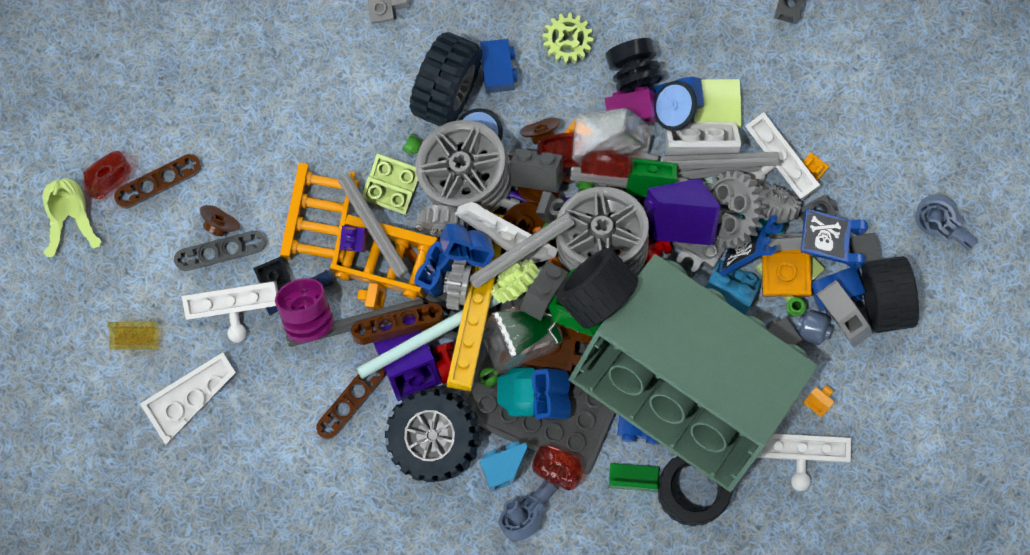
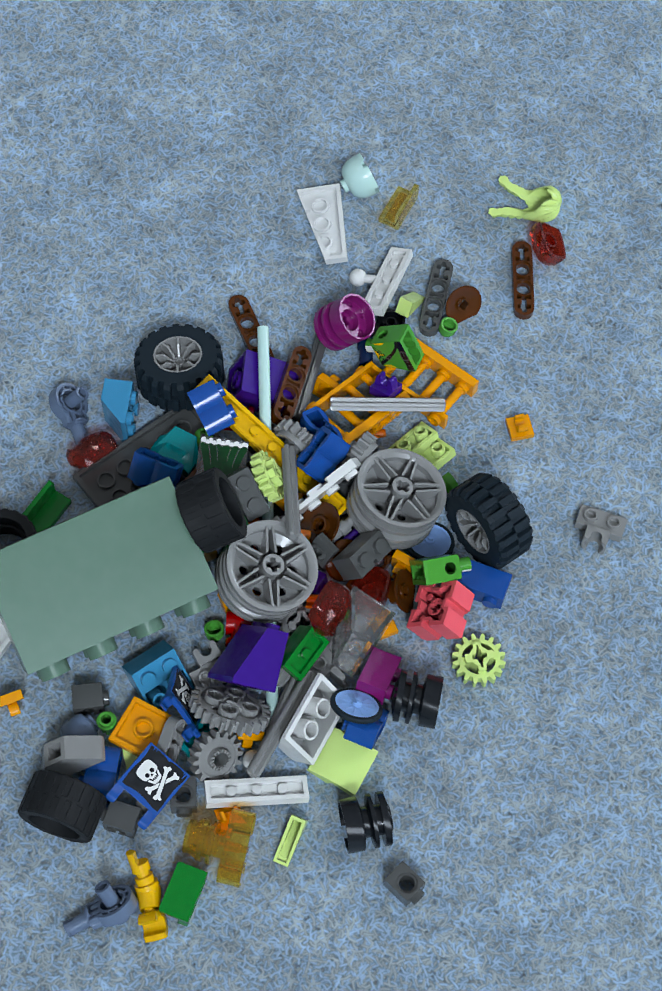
camera: 120 degrees right, 15 degrees down
(124, 388) = (358, 178): none -> light aqua cylinder
(243, 222) = (448, 324): none -> bright green hinge
(243, 267) = (409, 303): none -> yellowish green piece
(308, 249) = (396, 347): none -> bright green torso
(320, 110) = (519, 427): none -> light orange tile
(482, 359) = (212, 408): none -> blue brick
(514, 101) = (438, 569): none -> bright green torso
(516, 142) = (400, 561): none -> light orange tile
(546, 85) = (440, 611): none -> coral brick
(758, 51) = (366, 821): none -> black wheel
(801, 112) = (290, 840): none -> yellowish green piece
(841, 153) = (231, 846): none -> clear yellow beam
(896, 166) = (183, 892): none -> green panel
(913, 193) = (149, 899): none -> yellow piece

